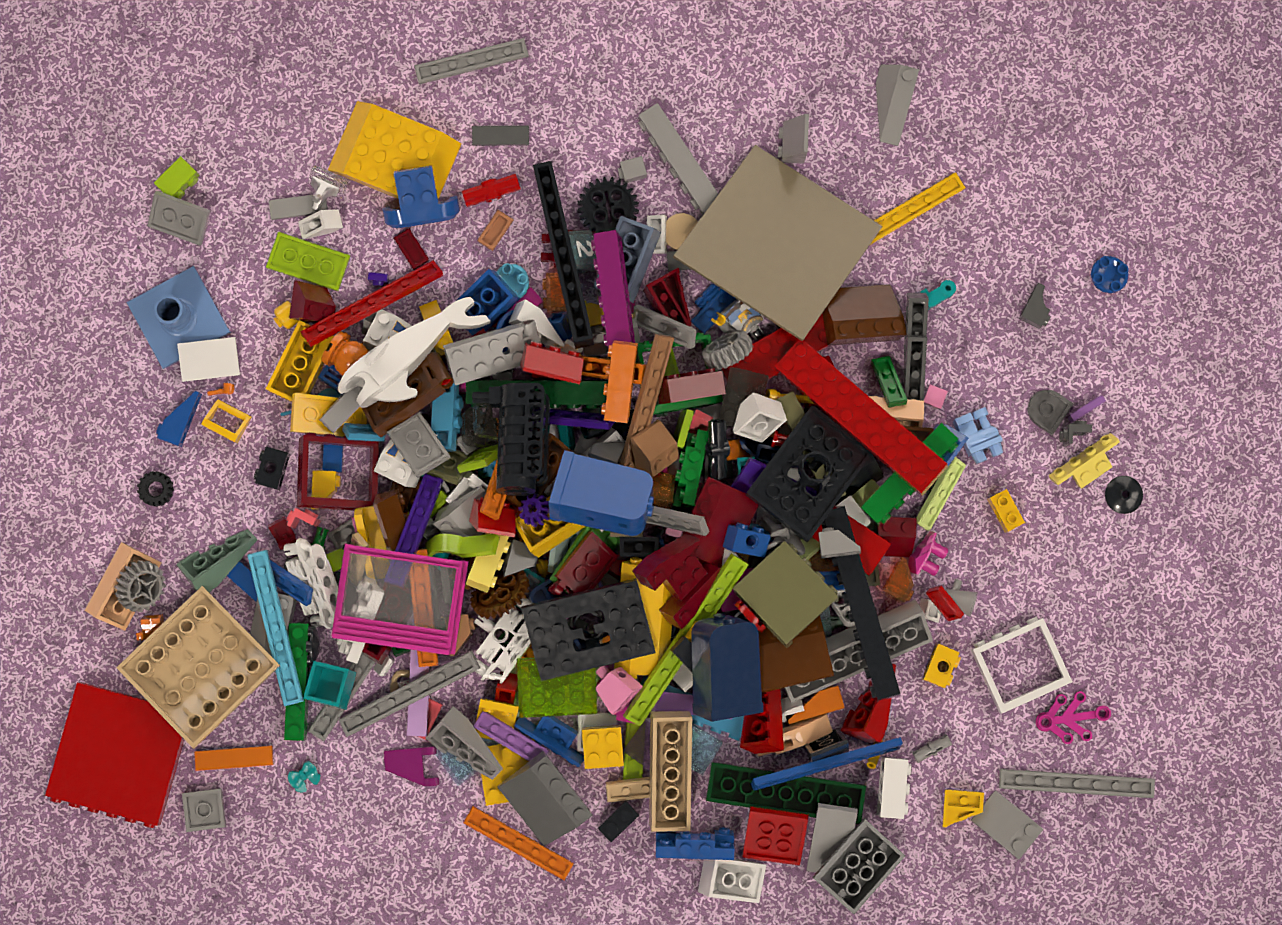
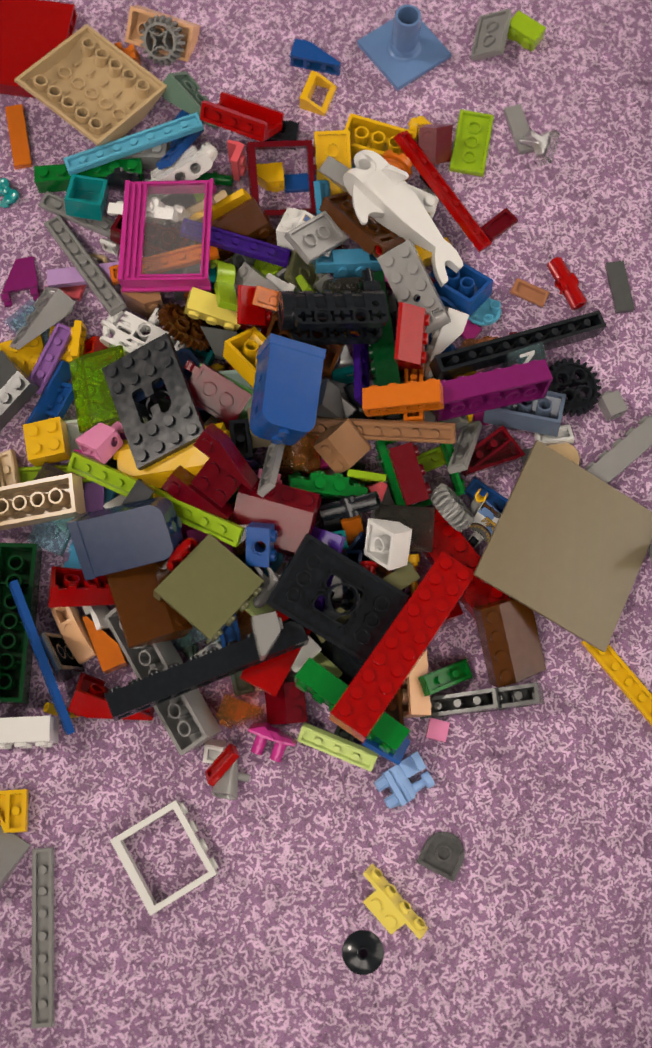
camera: 80 degrees right, 10 degrees down
(144, 485) = (250, 39): black tyre -> none
(208, 359) = (370, 74): white tile -> none
(228, 388) = (346, 92): orange hand -> none
(260, 506) = (242, 117): none -> red panel
(282, 533) = (222, 149): dark red bracket -> none
(320, 223) = (508, 147): white slope -> none
(378, 279) = (466, 197): dark purple plate -> none
(386, 142) = (581, 202): yellow slope -> none
(418, 200) = (546, 217): blue piece -> none
(528, 513) = (260, 334): dark purple gear -> none
(706, 296) = (501, 489): blue axle -> none
(932, 674) = (168, 767): yellow brick -> none
(932, 748) = (69, 770): light grey pin -> none
(940, 294) = (544, 720): teal leg -> none
(1005, 511) = (327, 819): yellow brick -> none
(1035, 311) = (545, 827): dark grey arch -> none
(1068, 718) = (113, 919): dark pink plant -> none
(1079, 428) = (427, 888): dark grey bracket -> none
(1086, 408) = (450, 897): medium lavender tile -> none
(1109, 274) = (600, 906): blue dish -> none

